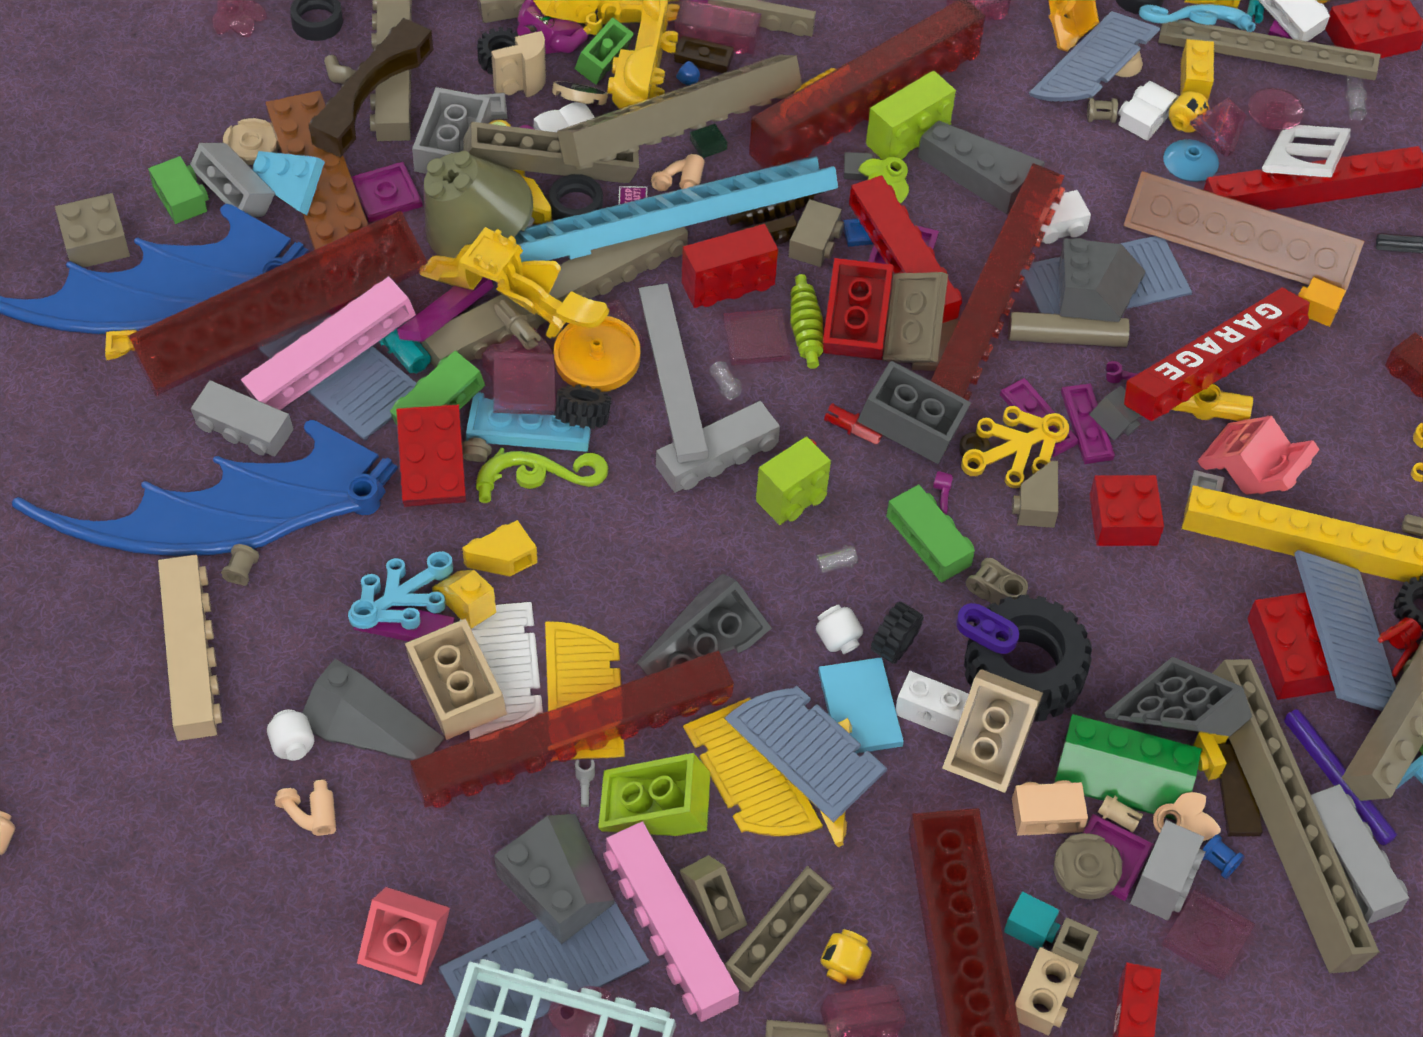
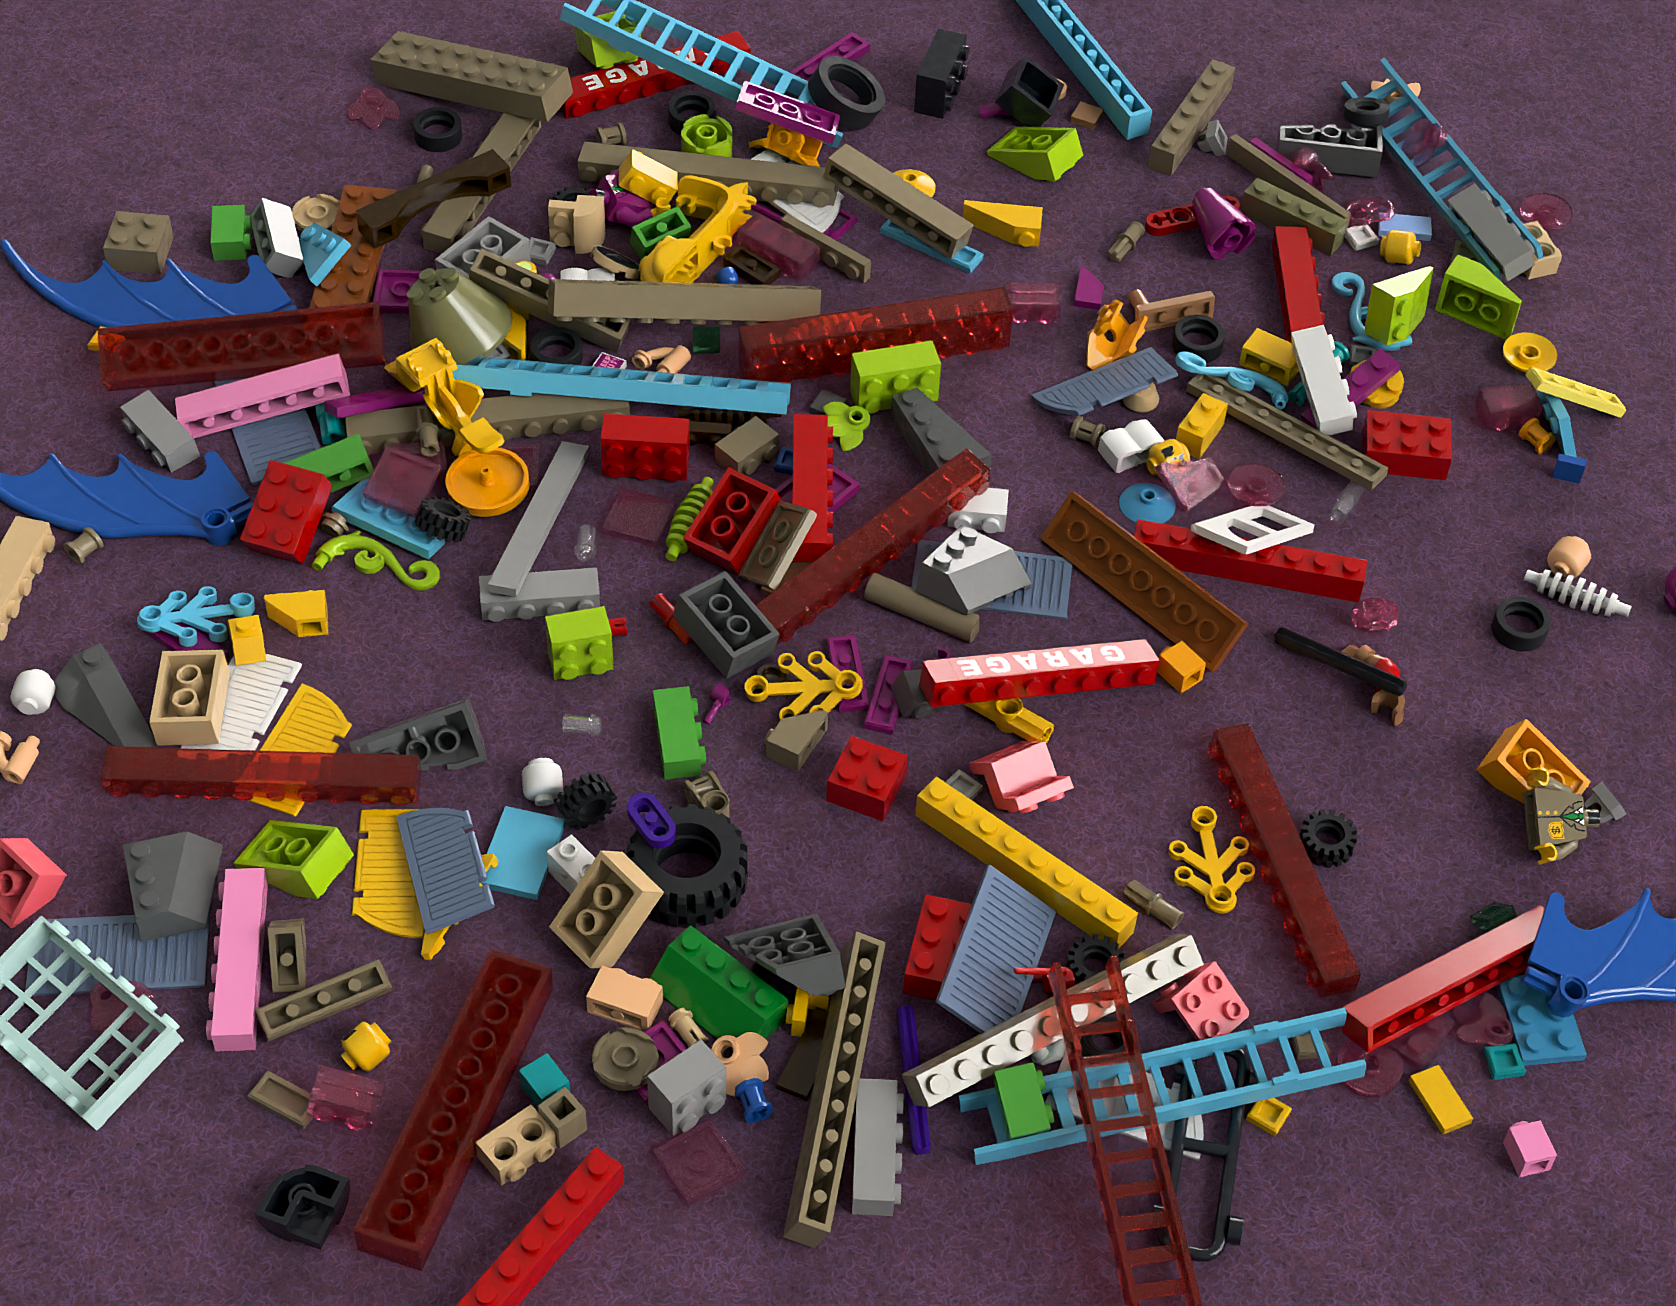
camera: 25 degrees right, 5 degrees down
(585, 777) = (251, 818): light grey hand -> none

